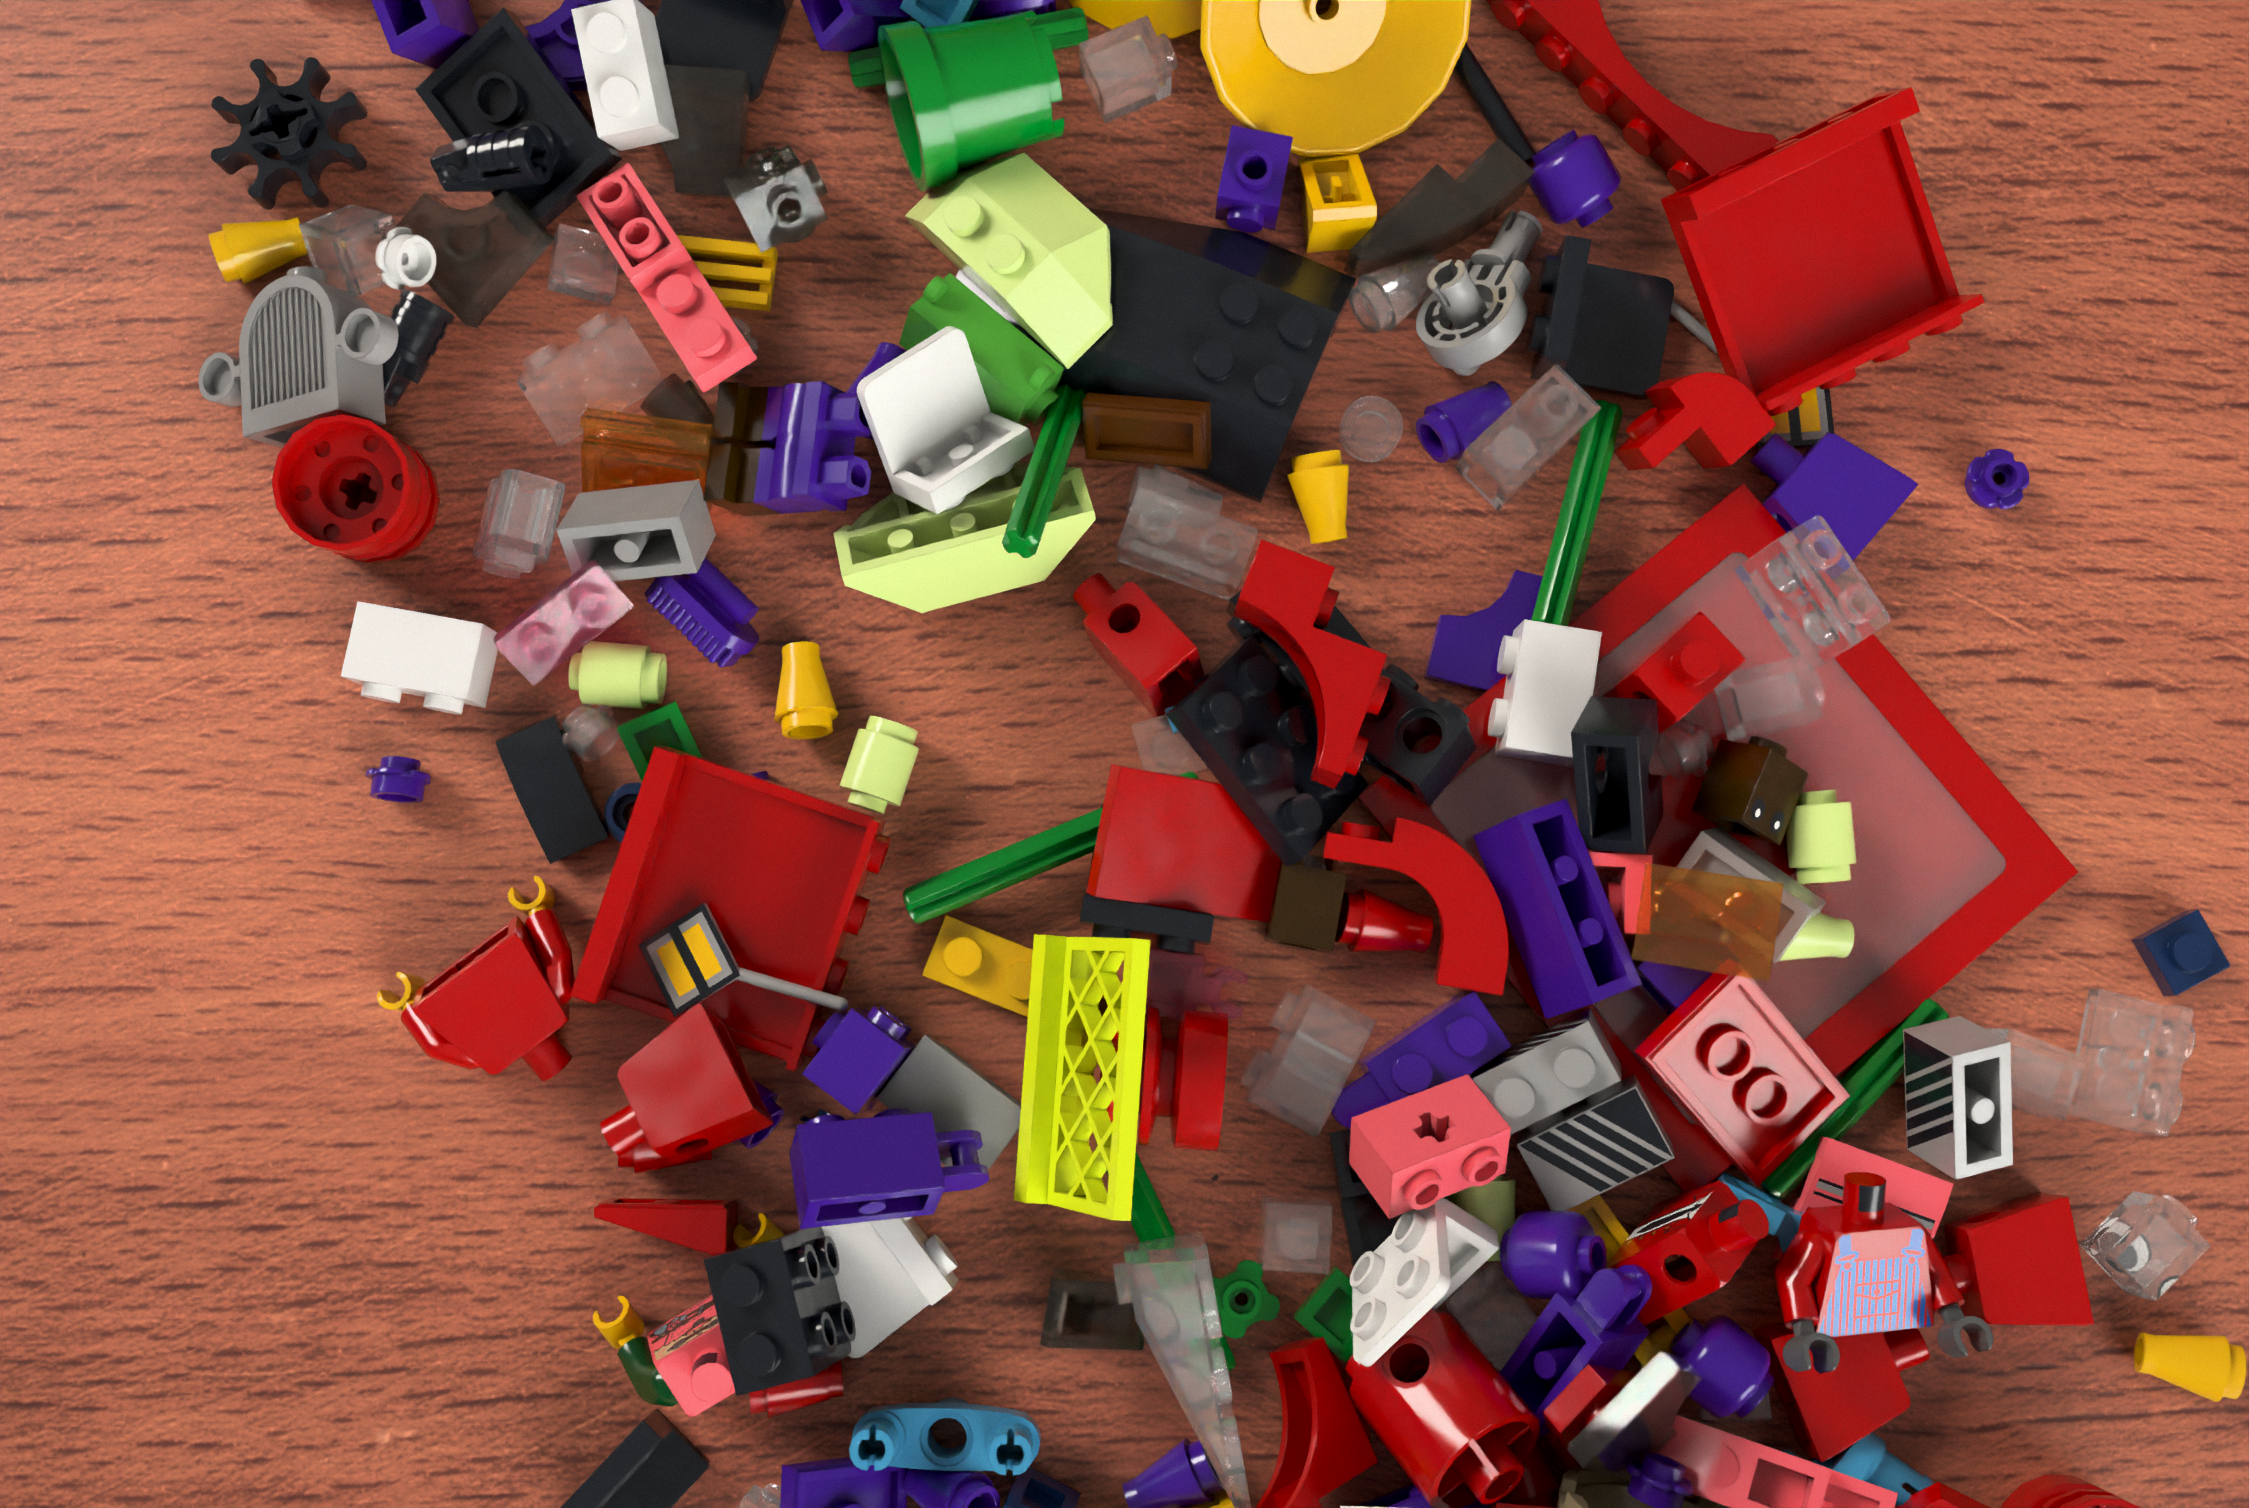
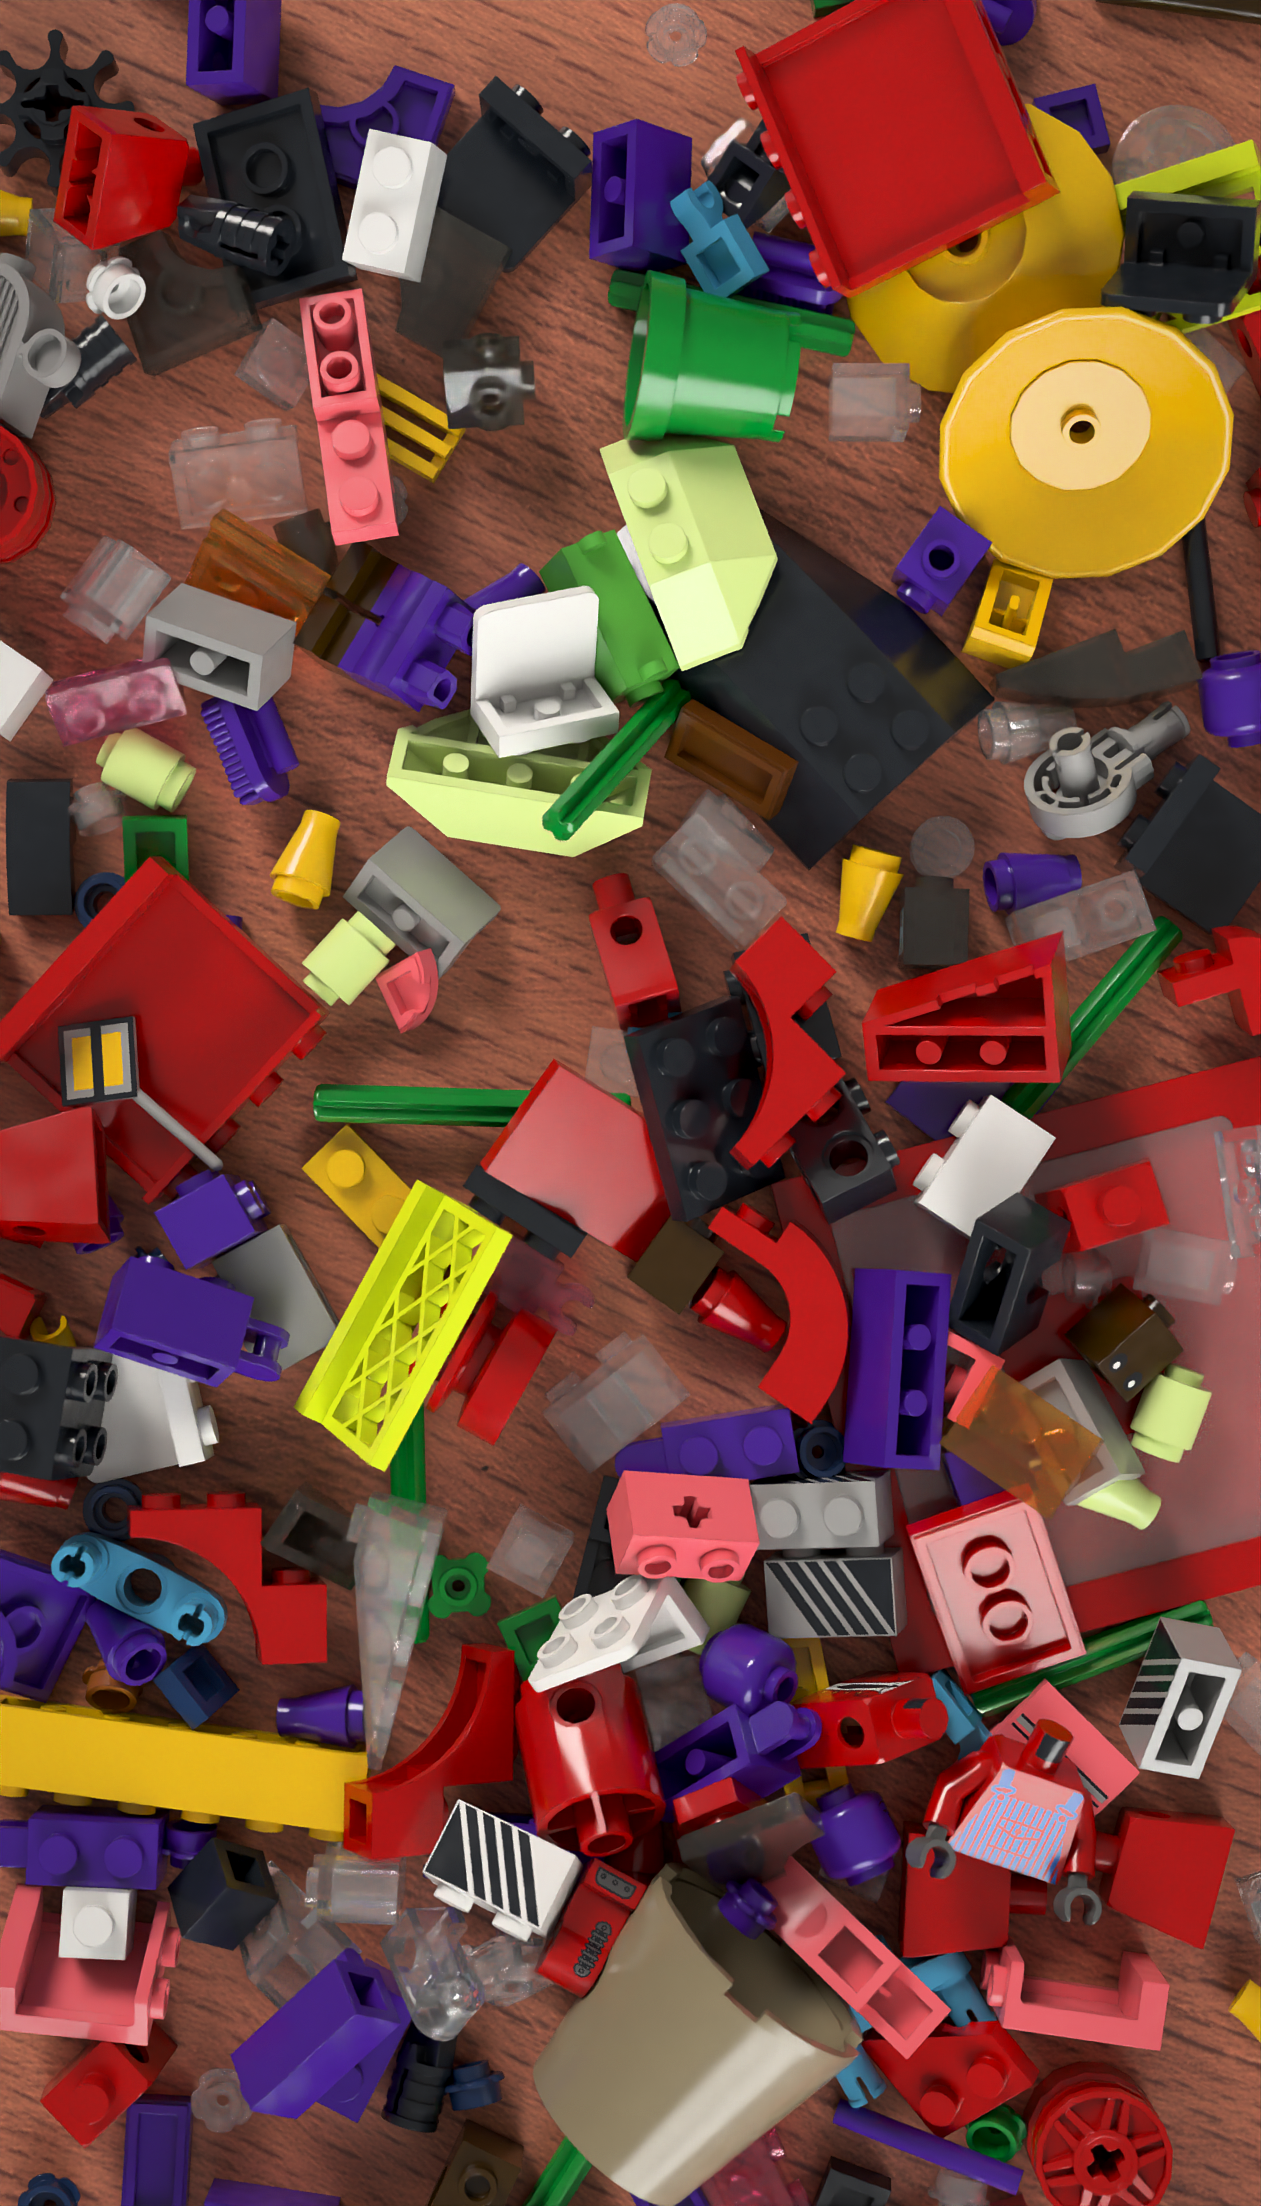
camera: 20 degrees right, 5 degrees up
(367, 155) = (121, 175): none -> red torso
(877, 1392) = (95, 1507): none -> dark blue plate
(924, 683) = (421, 899): none -> light grey panel
(949, 766) = (410, 989): none -> coral tile
(1089, 1398) = (227, 1531): none -> red arch
(1397, 498) = (933, 924): none -> clear smoke brick
(1478, 559) = (975, 1020): none -> red wedge
(1527, 1009) = (831, 1442): none -> dark blue plate
(2052, 1420) = (1120, 2016): none -> coral panel

